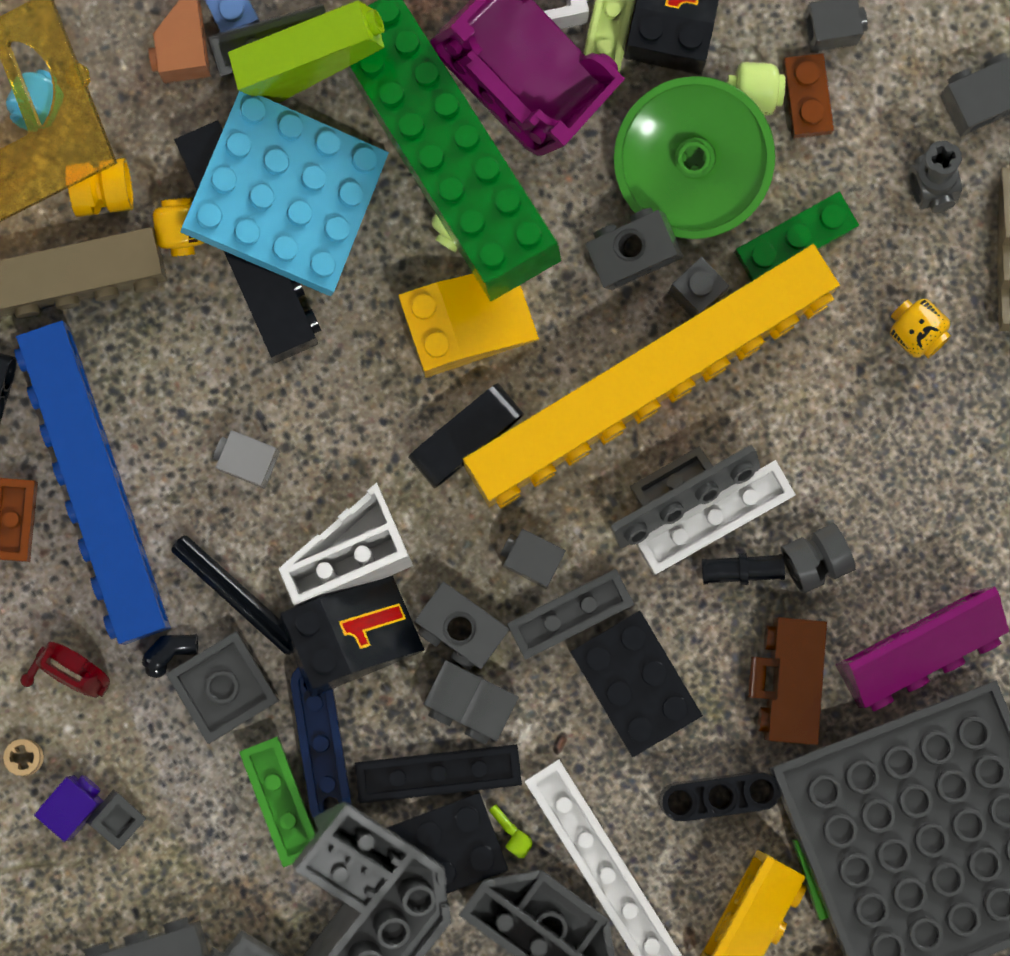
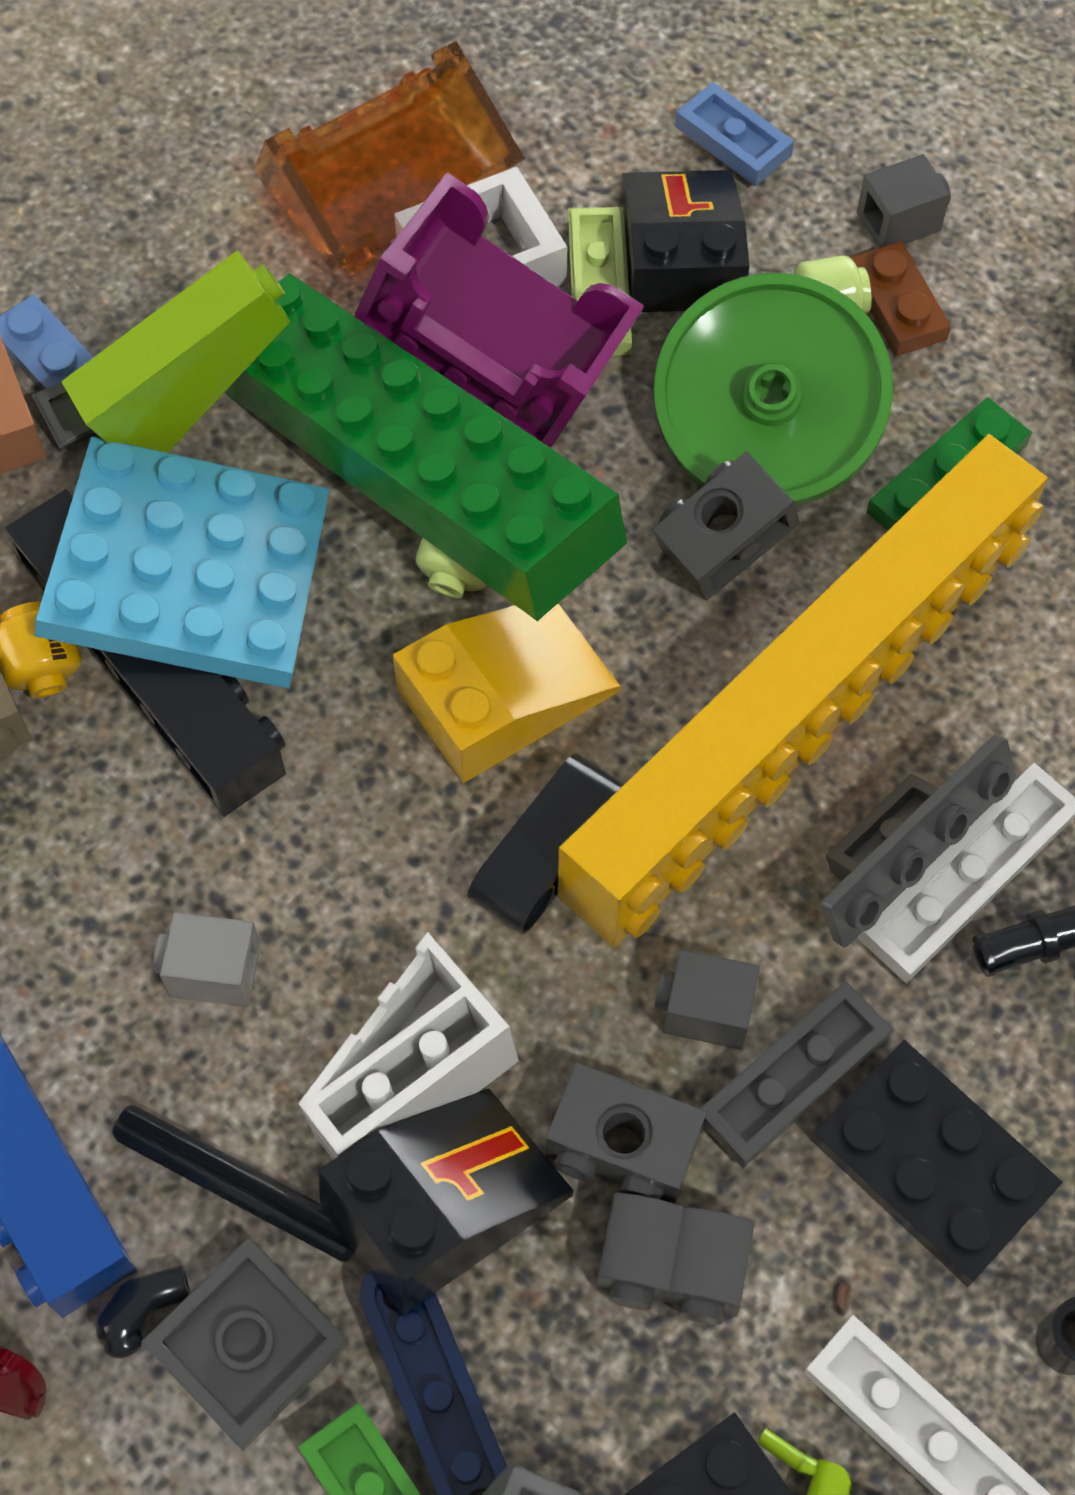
camera: 10 degrees left, 20 degrees down
(438, 773) = (654, 1399): black tile -> none
(698, 288) = (830, 550): dark grey brick -> none

